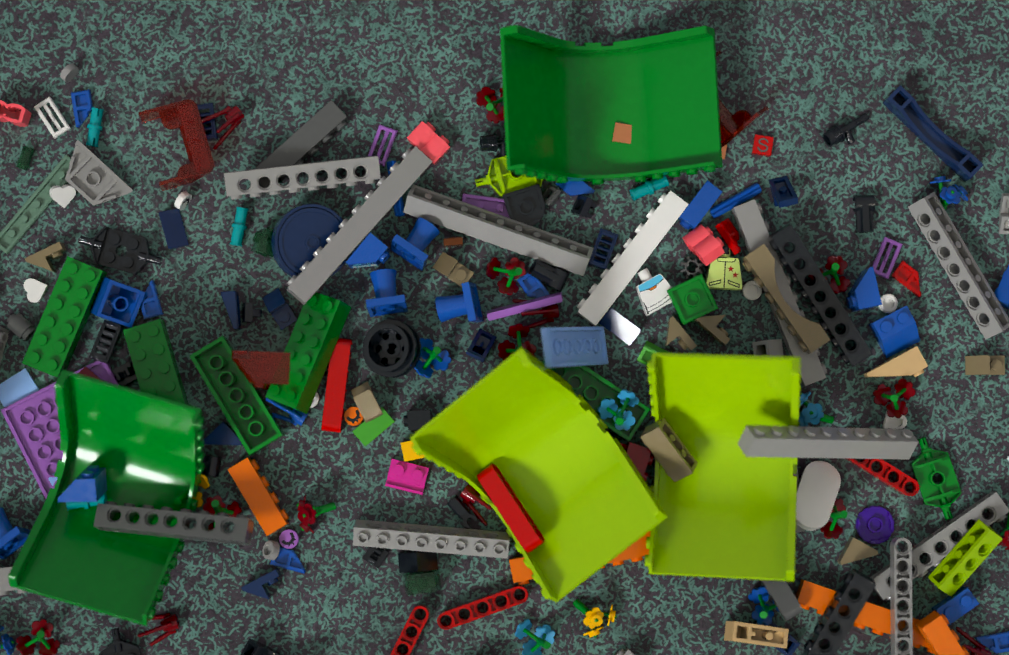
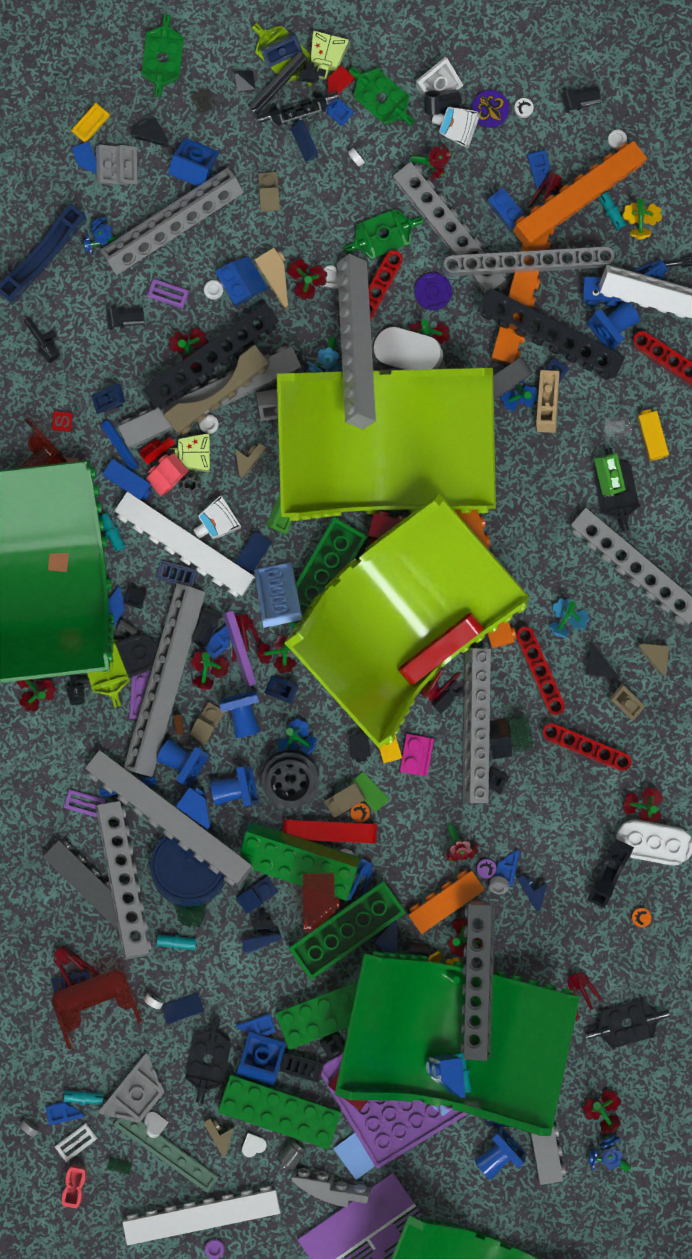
camera: 90 degrees left, 0 degrees up
(429, 142) = (79, 755): coral brick -> none
(594, 617) = (542, 560): yellow plant -> none
(622, 418) = (345, 544): dark azure plant -> none
(668, 450) = (373, 496): dark tan brick -> none
(675, 330) = (254, 497): dark tan slope -> none
(692, 299) = (222, 482): green tile -> none
(855, 550) = (460, 309): dark tan slope -> none
(864, 292) = (204, 313): blue slope -> none
(907, 277) = (186, 271): red tile -> none
(965, 557) = (459, 202): lime brick -> none

